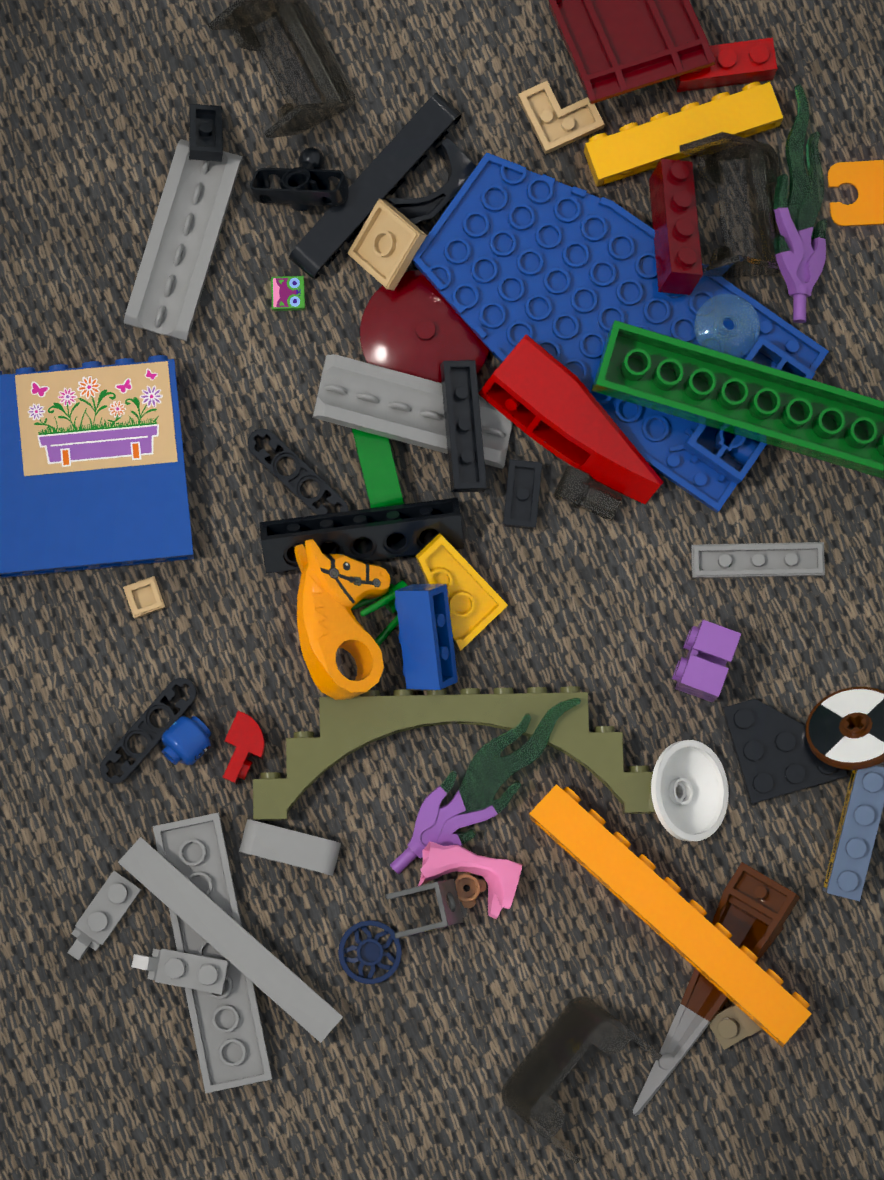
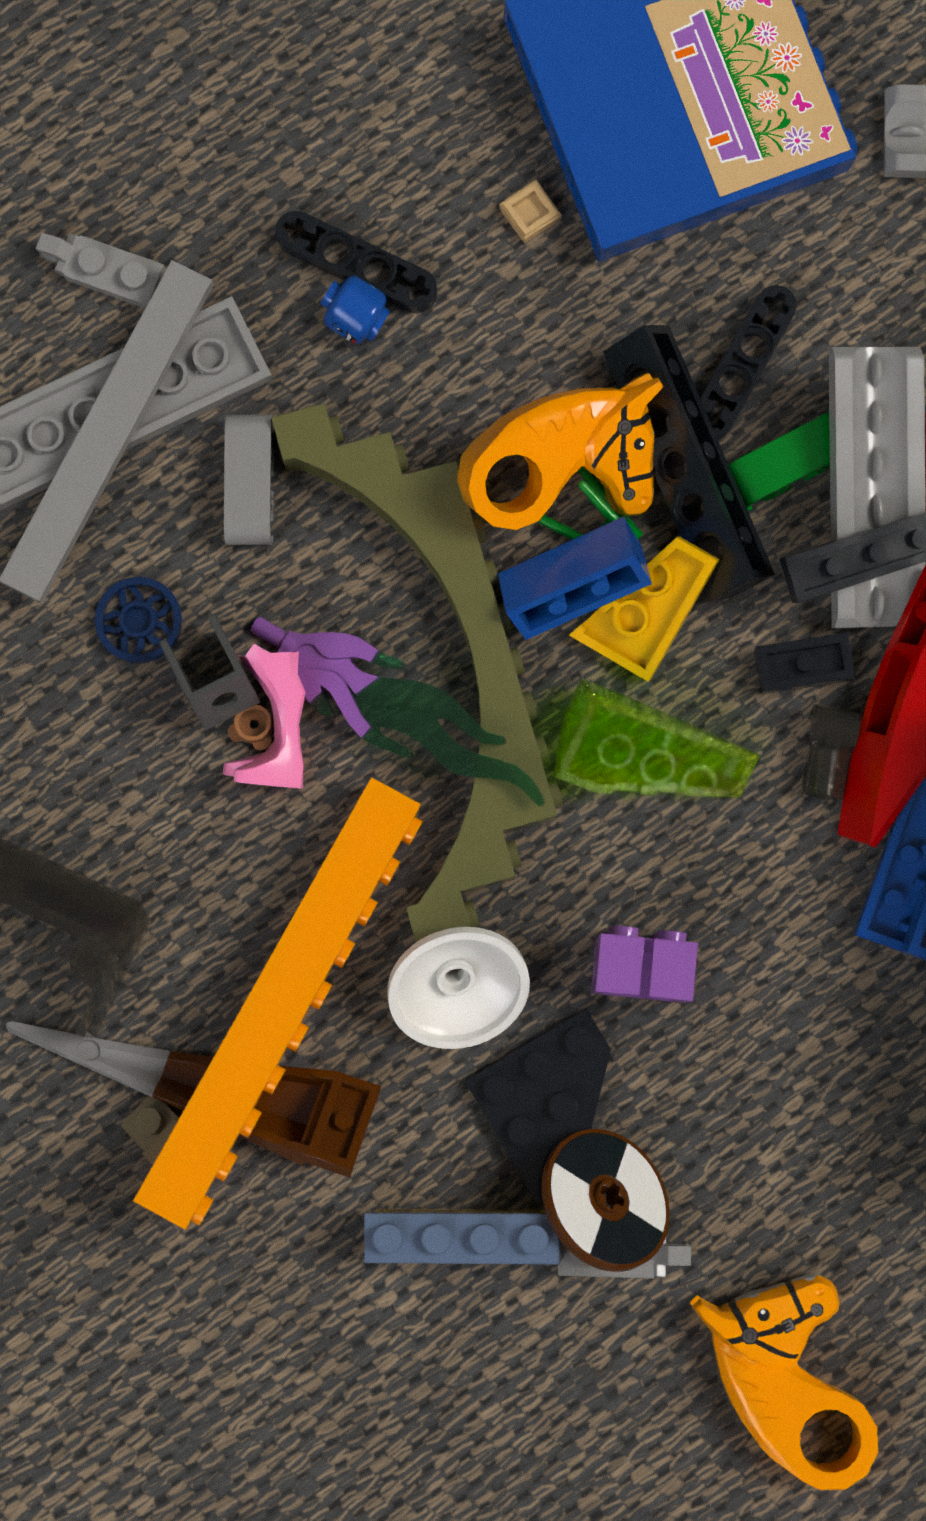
camera: 80 degrees right, 0 degrees up
(184, 970) = (53, 381): light grey hinge -> none
(248, 740) = (376, 388): red brick -> none
(550, 628) = (631, 747): none -> clear neon green wedge
(757, 560) = (803, 1008): light grey tile -> none

